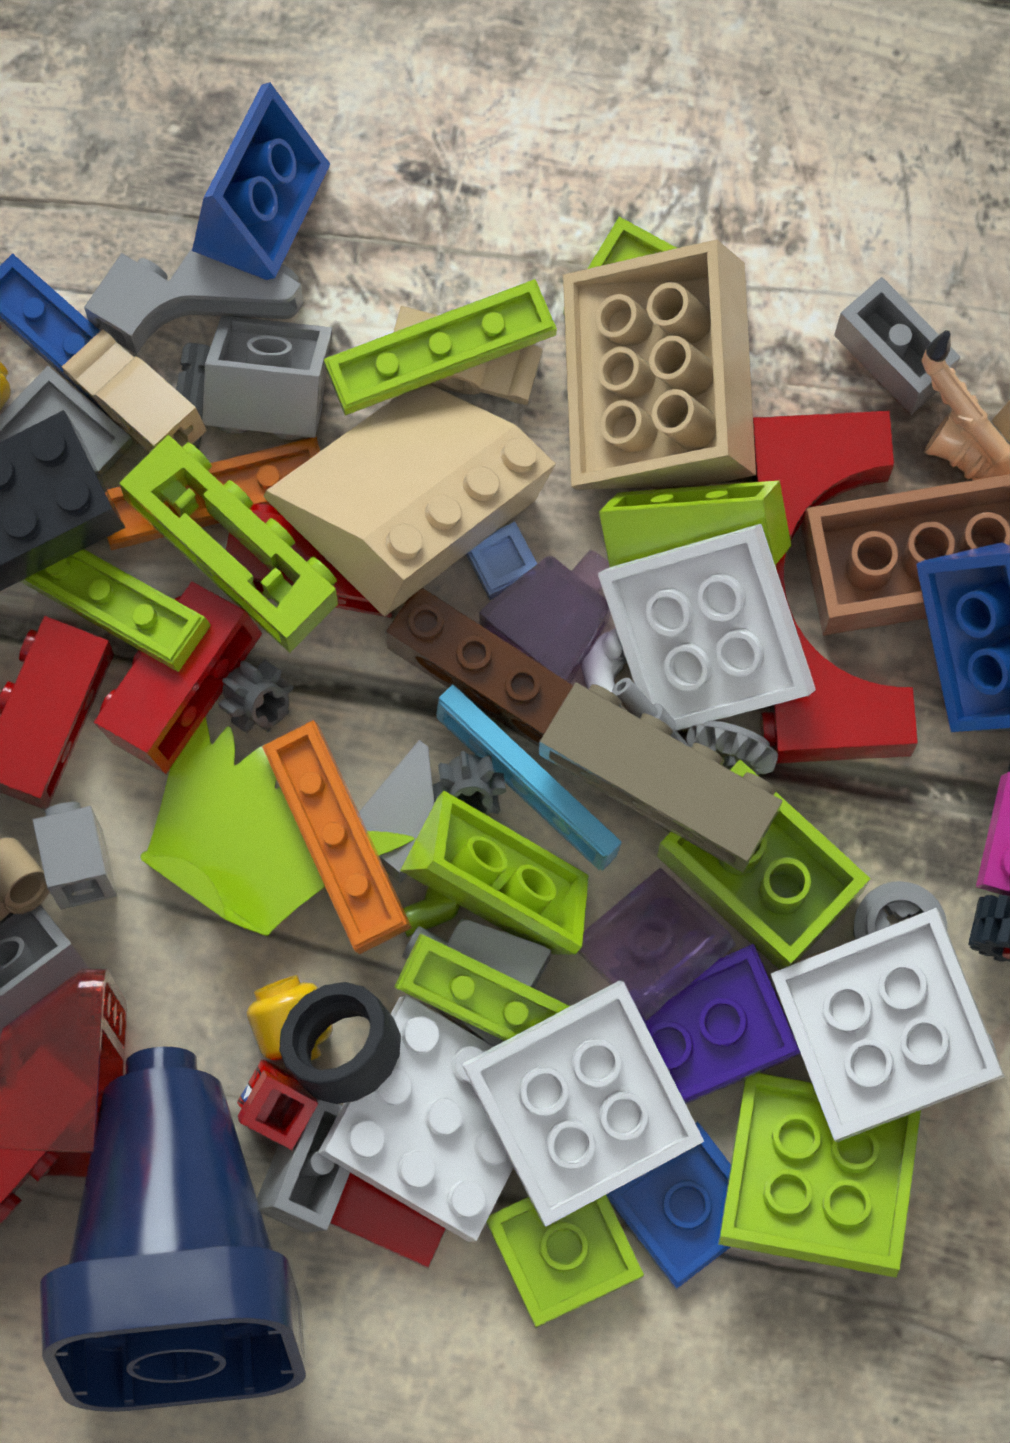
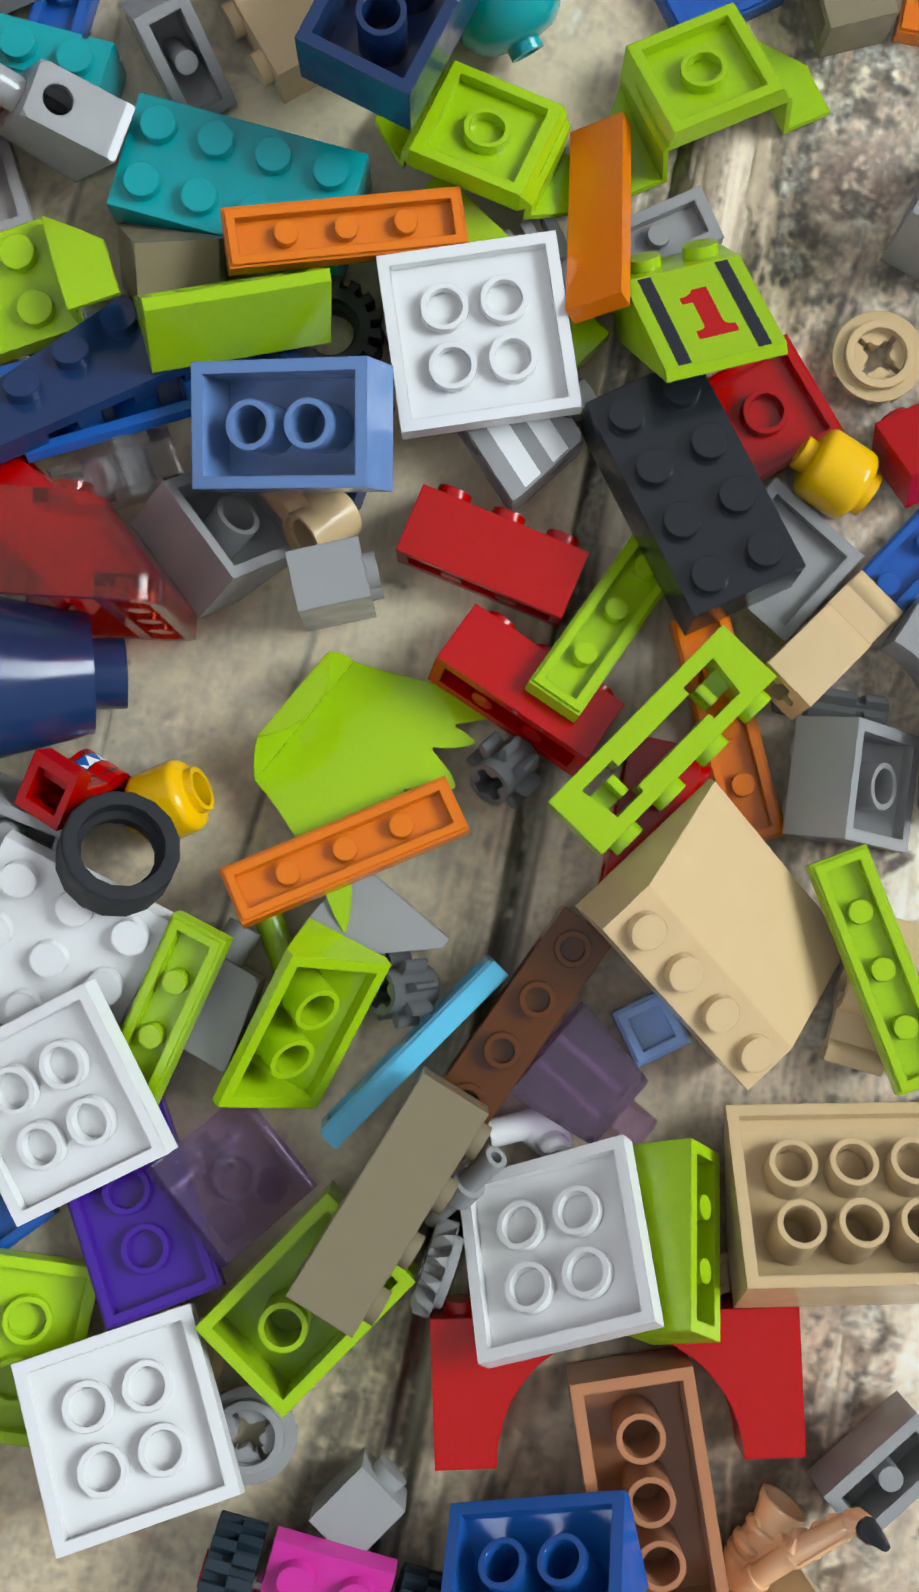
camera: 90 degrees right, 10 degrees up
(954, 817) = (360, 1501): none -> light grey brick

